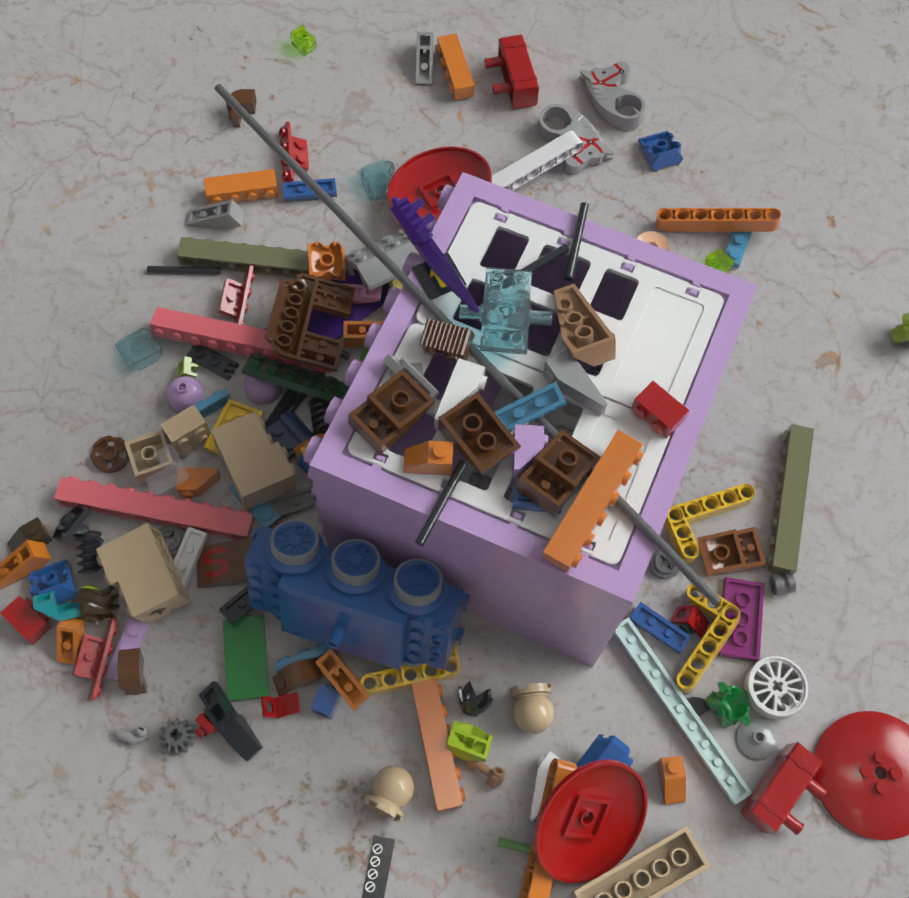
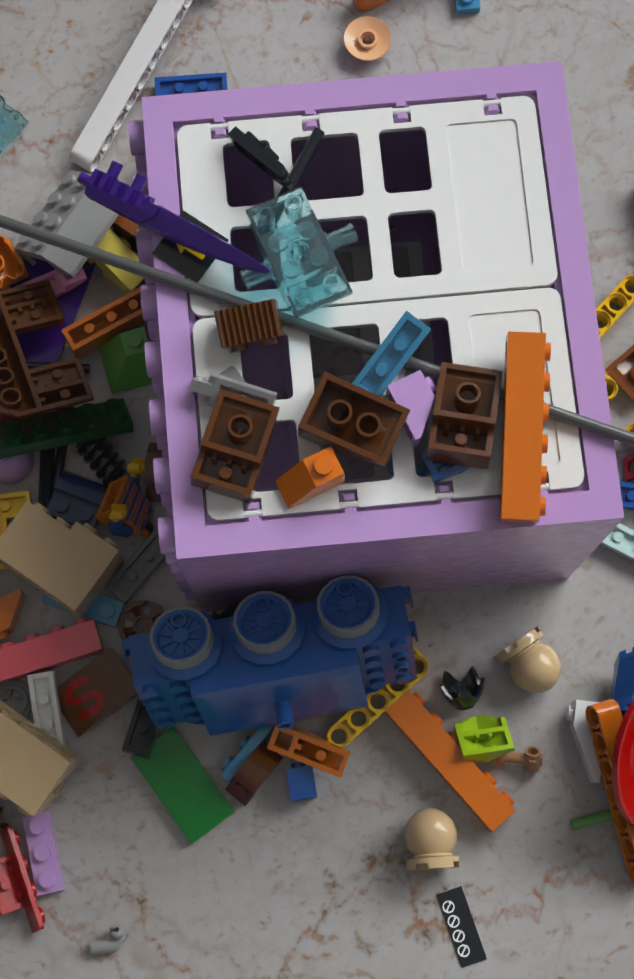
camera: 25 degrees left, 10 degrees up
(130, 671) = (66, 874): reddish brown brick -> none
(171, 743) = (159, 924): dark grey gear -> none
(206, 726) = (186, 882): red tile -> none
(228, 722) = (208, 867): black slope -> none
(281, 706) = (254, 815): red bracket -> none
(433, 170) = (59, 73): red dish -> none
(441, 503) = (353, 525): black bar -> none
(464, 382) = (300, 371): white slope -> none
(518, 244) = (264, 158): none -> black hinge
(574, 381) = (414, 292): light grey slope -> none
(576, 242) = (327, 117): black bar -> none
(582, 328) = (394, 224): medium nougat wedge -> none
(659, 409) = (535, 277): red brick -> none
(719, 261) = (455, 19): clear neon green brick -> none

